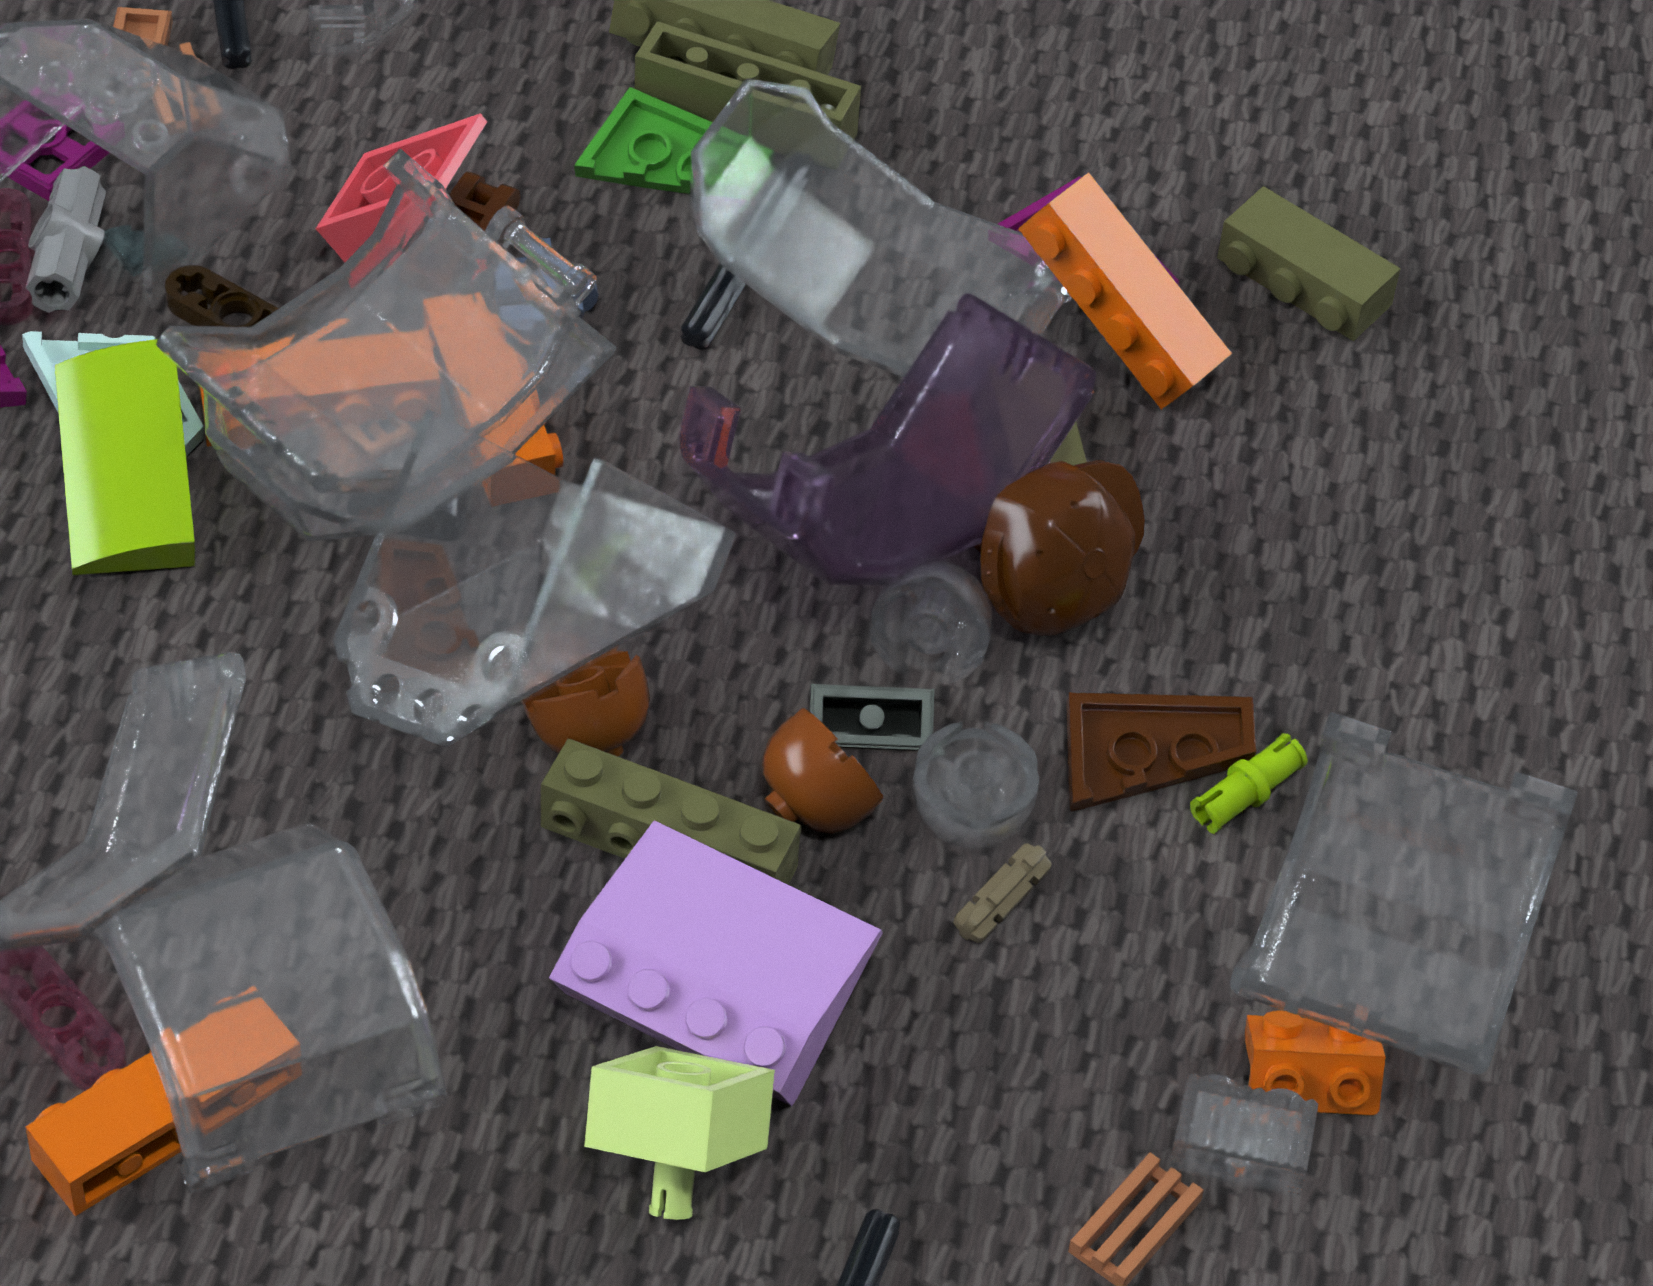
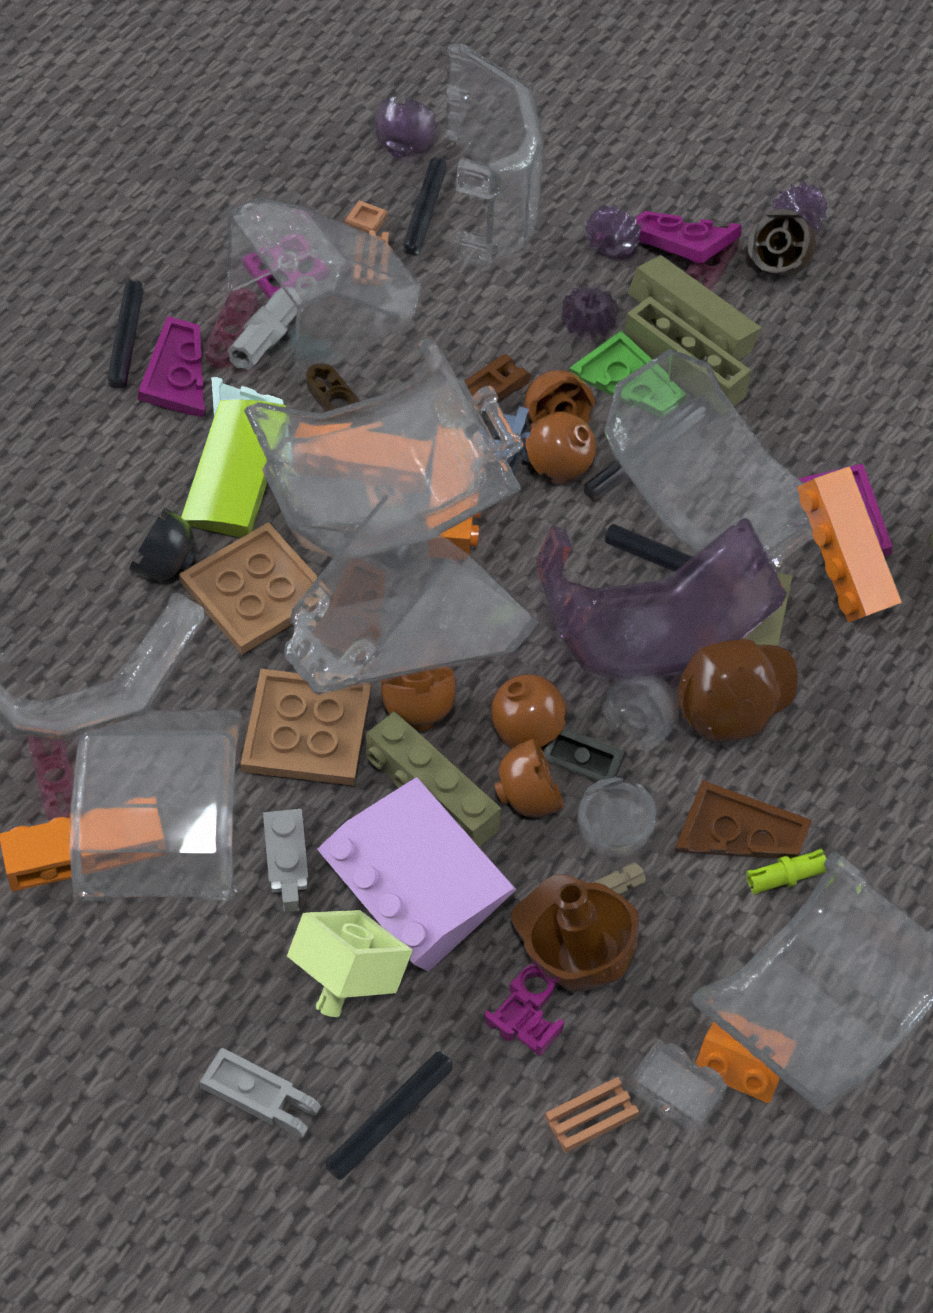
camera: 25 degrees right, 5 degrees up
(76, 613) = (165, 548): none -> black cylinder
(247, 604) = (250, 586): none -> medium nougat plate
(369, 187) = (464, 348): coral slope -> none
(432, 814) = (304, 732): none -> medium nougat plate
(492, 1012) = (286, 855): none -> light grey hinge
(565, 74) = (589, 312): none -> clear purple gear
(590, 207) = (558, 393): none -> dark orange cylinder
(635, 278) = (561, 446): none -> dark orange cylinder
(763, 676) = (528, 710): none -> dark orange cylinder
(819, 392) = (646, 547): none -> black axle
(973, 1120) = (526, 1019): none -> magenta piece
(999, 963) = (577, 931): none -> reddish brown piece

